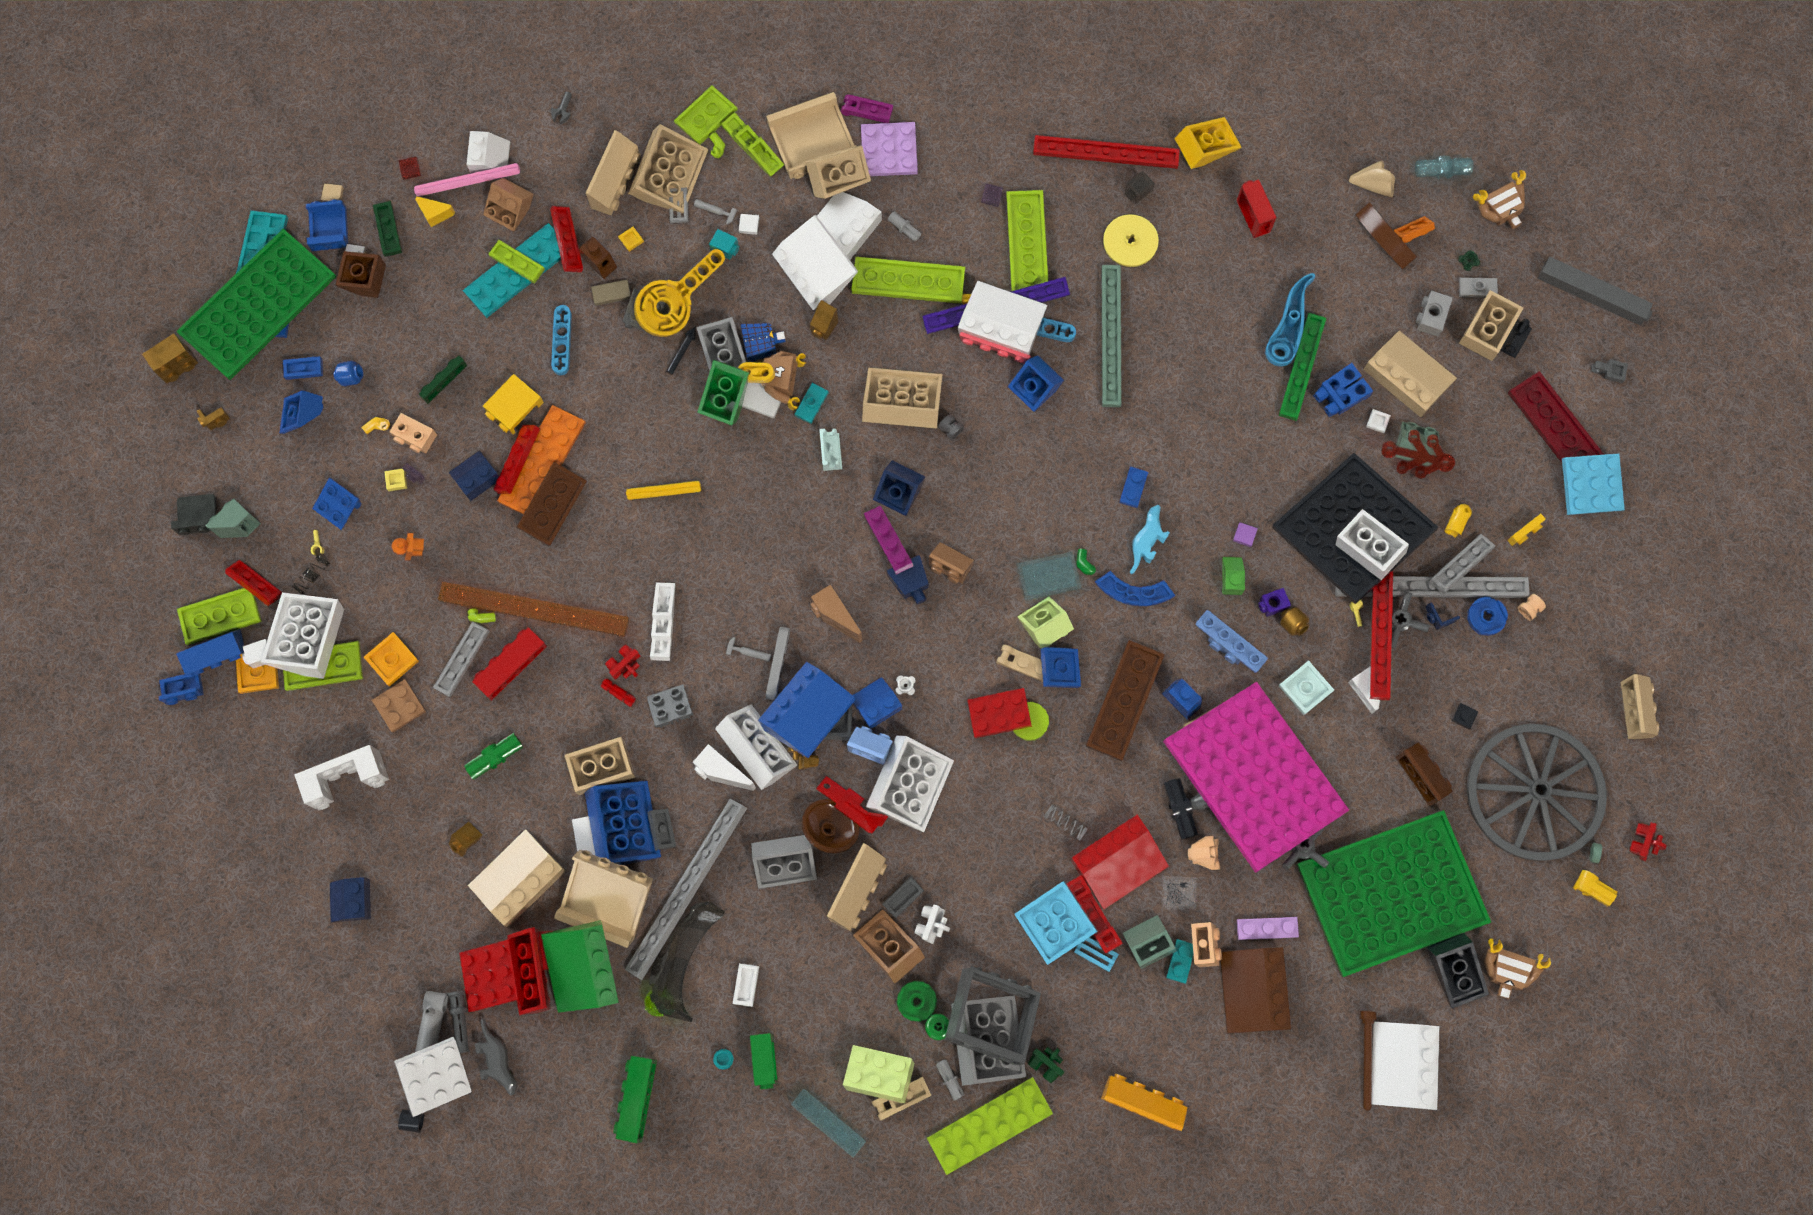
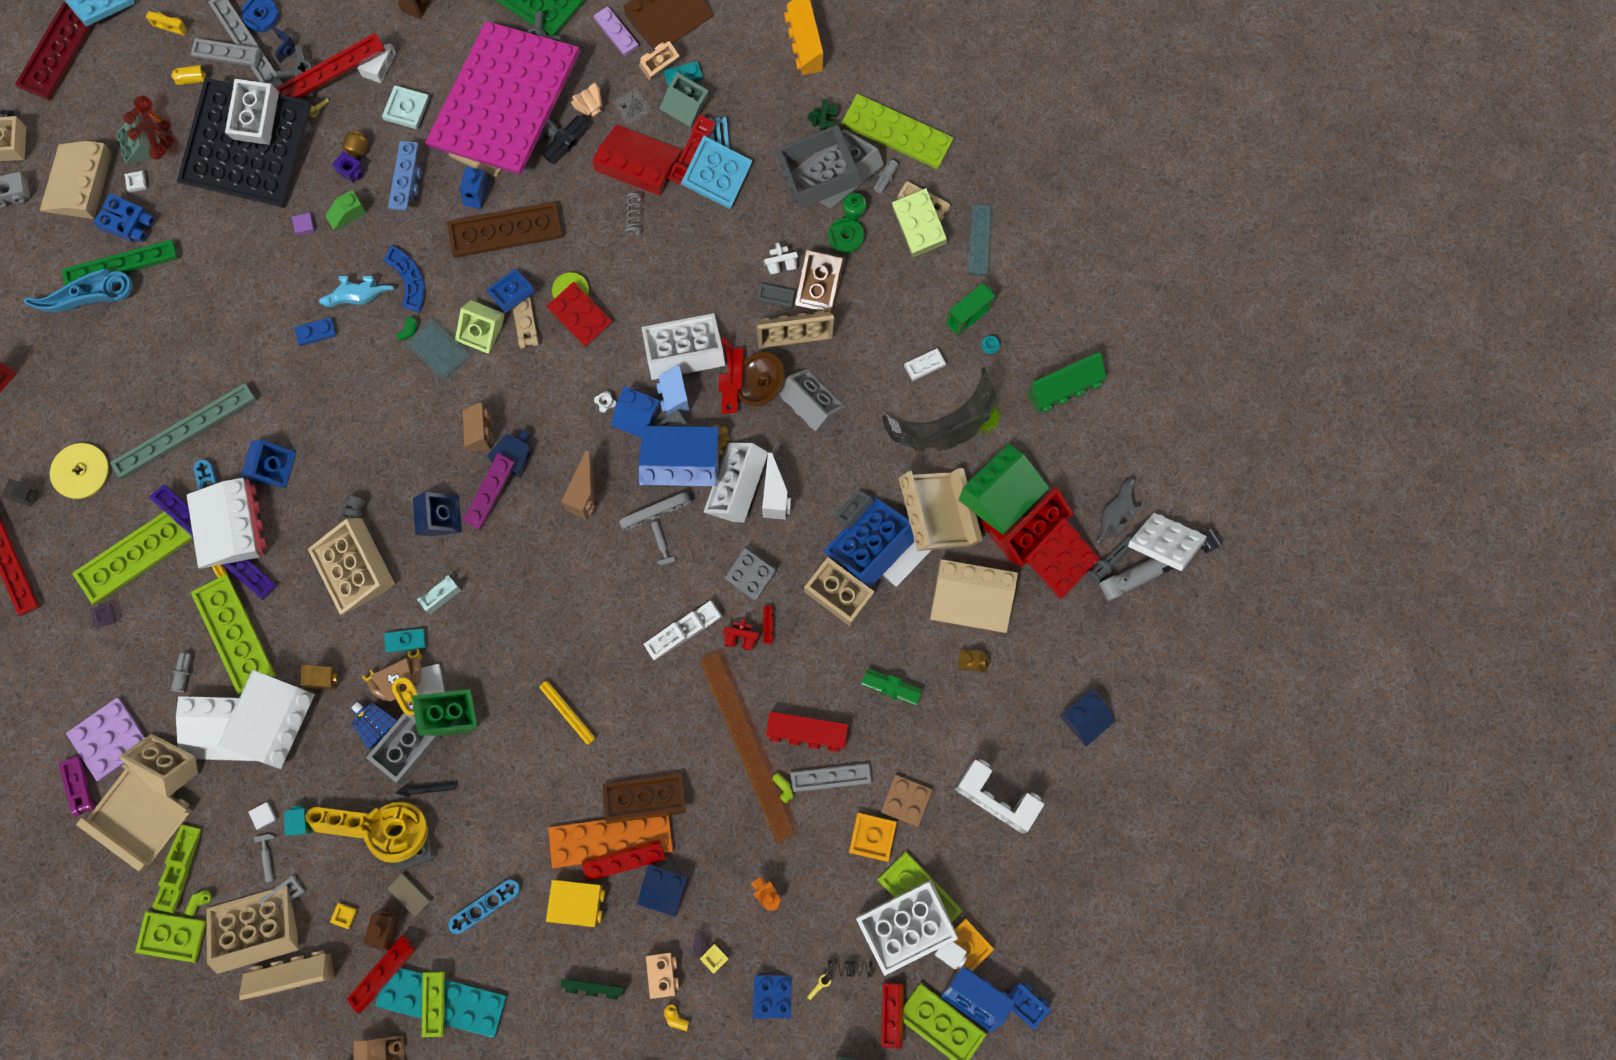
camera: 130 degrees left, 0 degrees up
(685, 889) = (885, 458): light grey plate -> none

